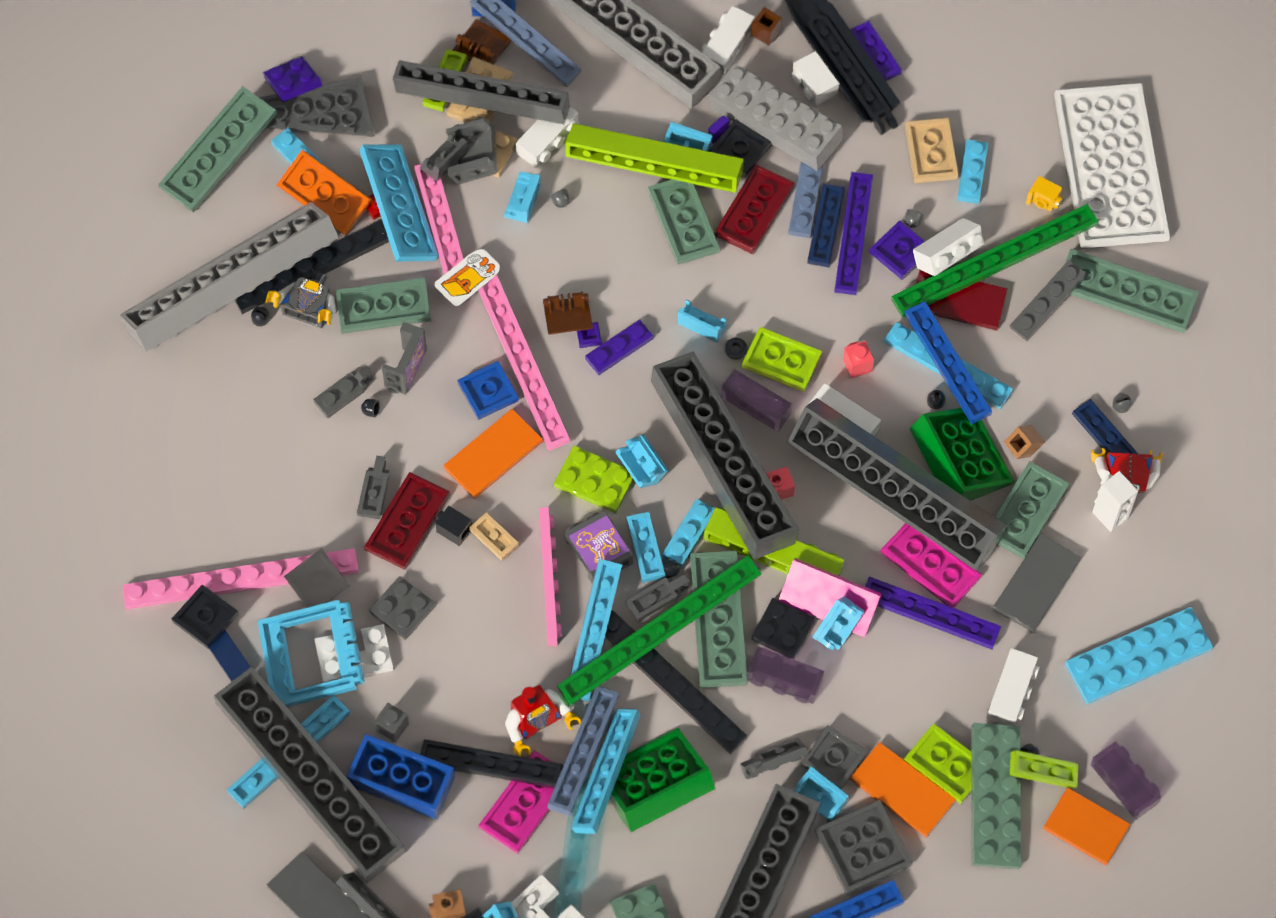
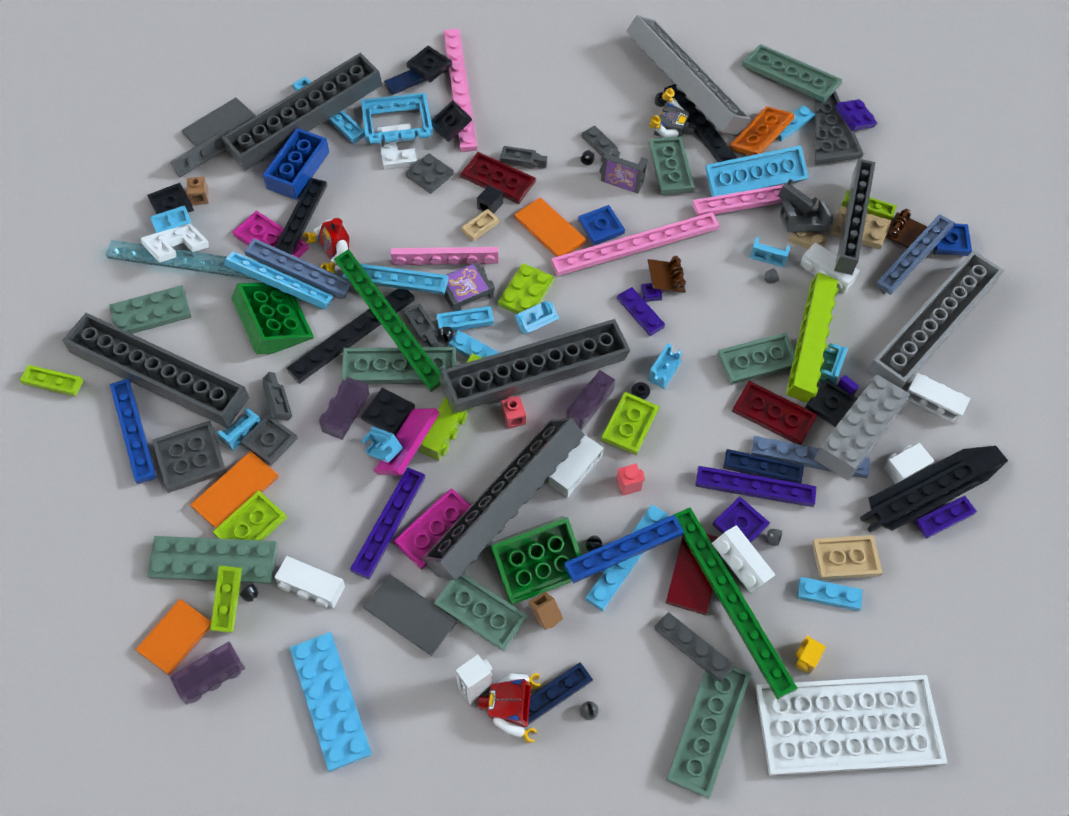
camera: 90 degrees right, 5 degrees down
(391, 722) = (339, 161): dark grey brick -> none
(467, 276) = (696, 212): sticker -> none
(766, 26) = (955, 425): reddish brown brick -> none

